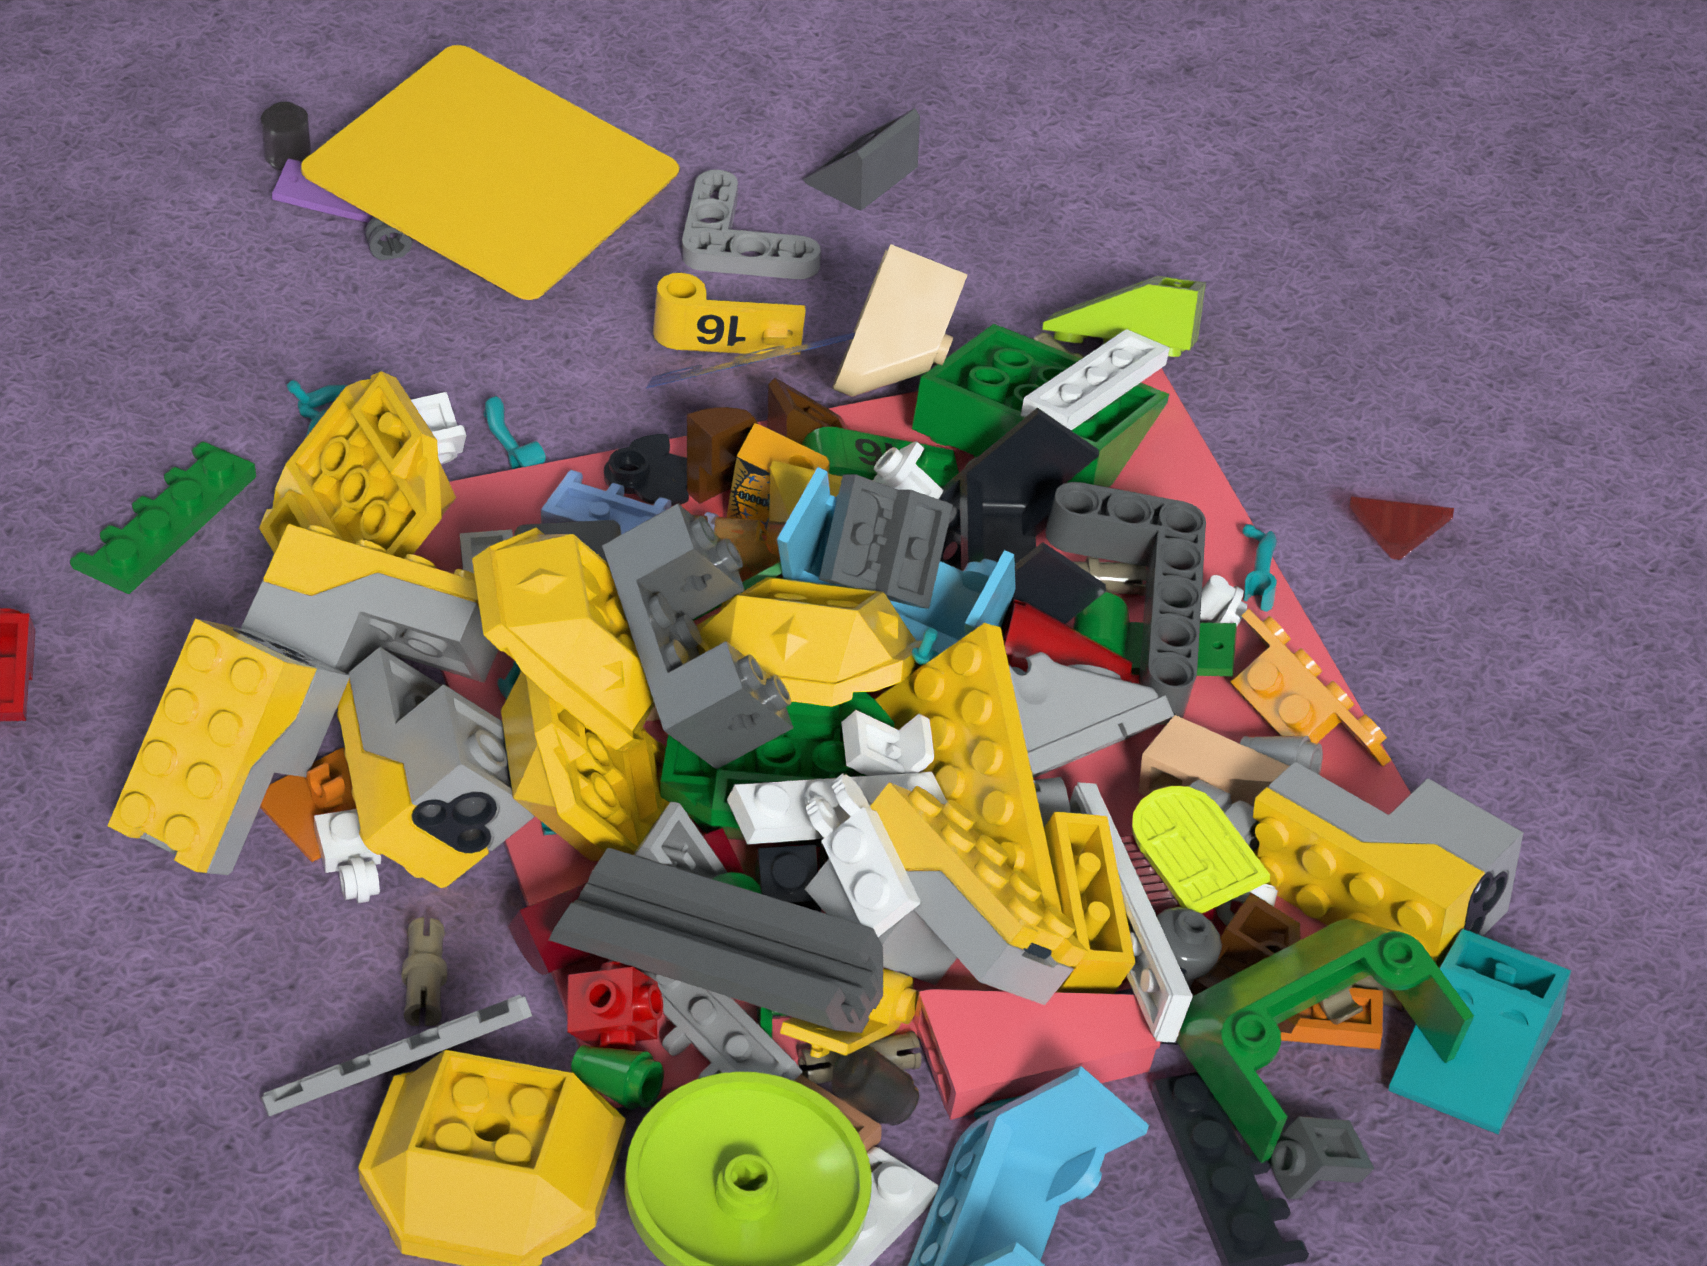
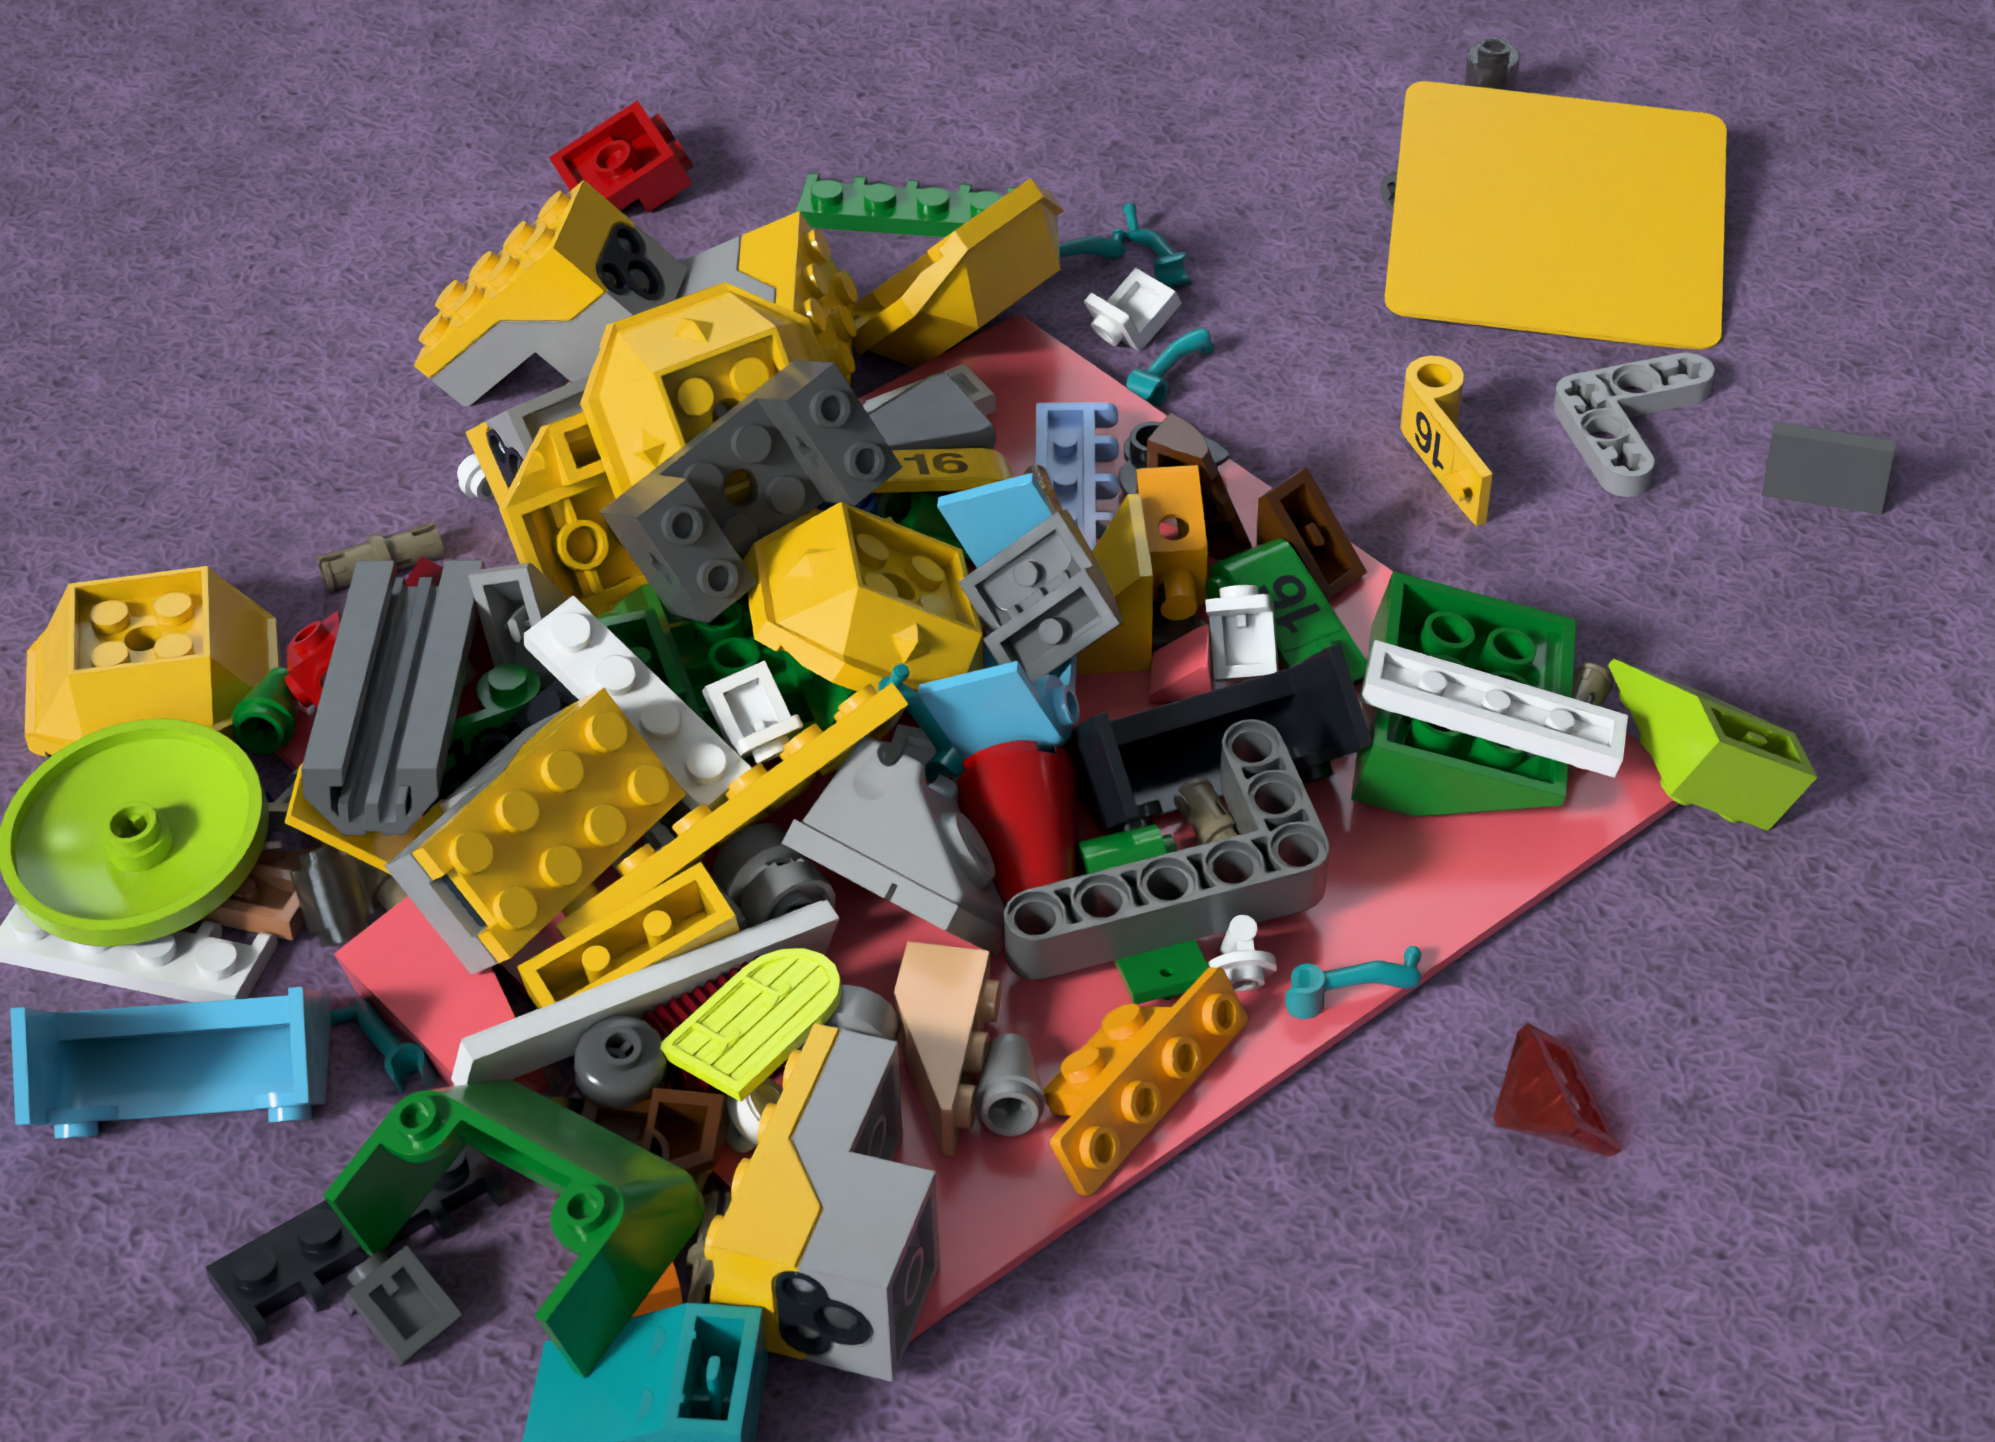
camera: 70 degrees right, 0 degrees up
(396, 1055) = (224, 558): light grey tile -> none
(741, 360) = (1386, 474): piece -> none
(863, 857) = (528, 715): white hinge -> none
(900, 323) = (1381, 507): windscreen -> none

